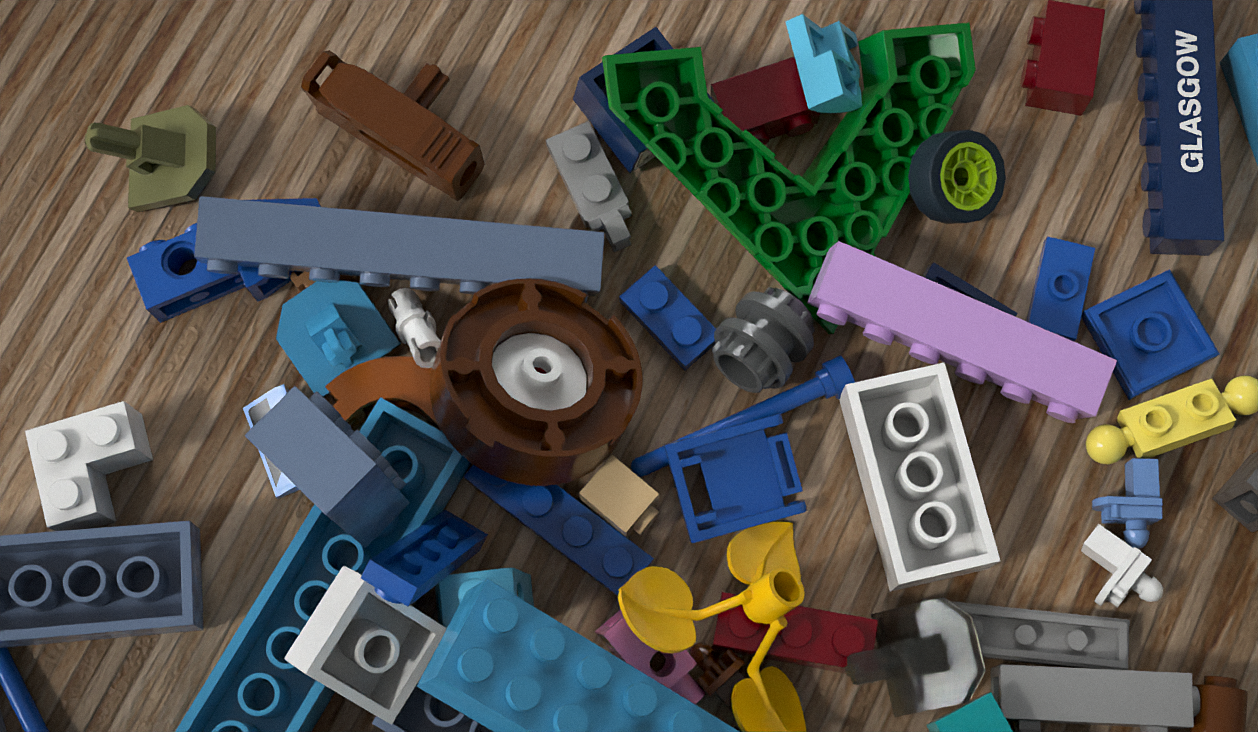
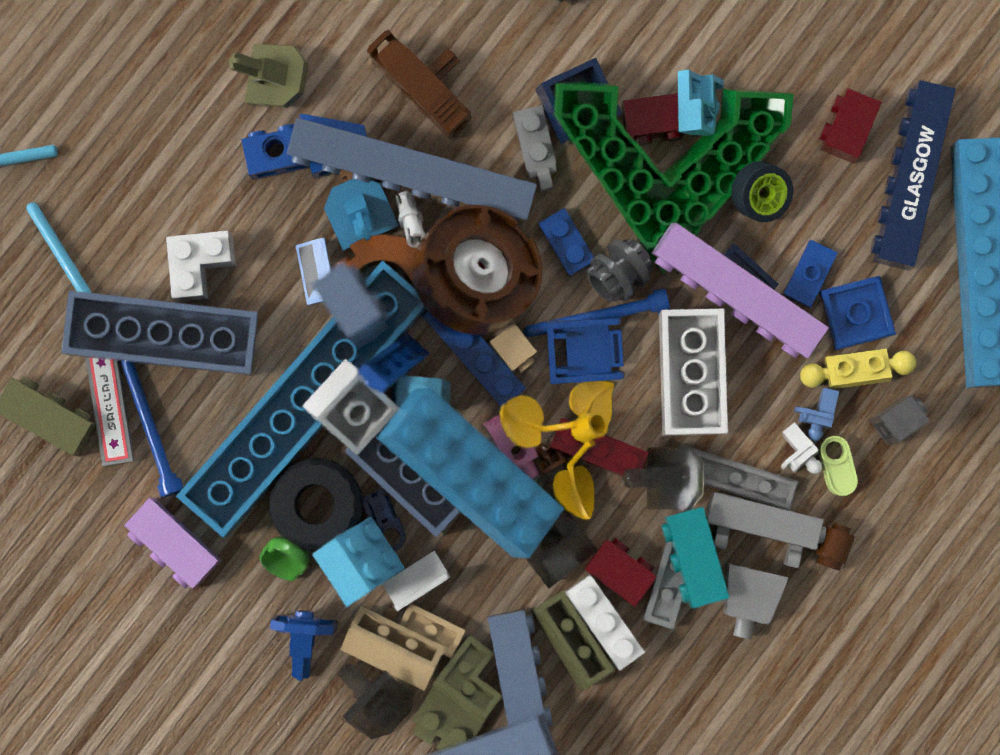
camera: 10 degrees right, 10 degrees up
(1193, 591) = (840, 472): none -> yellowish green piece

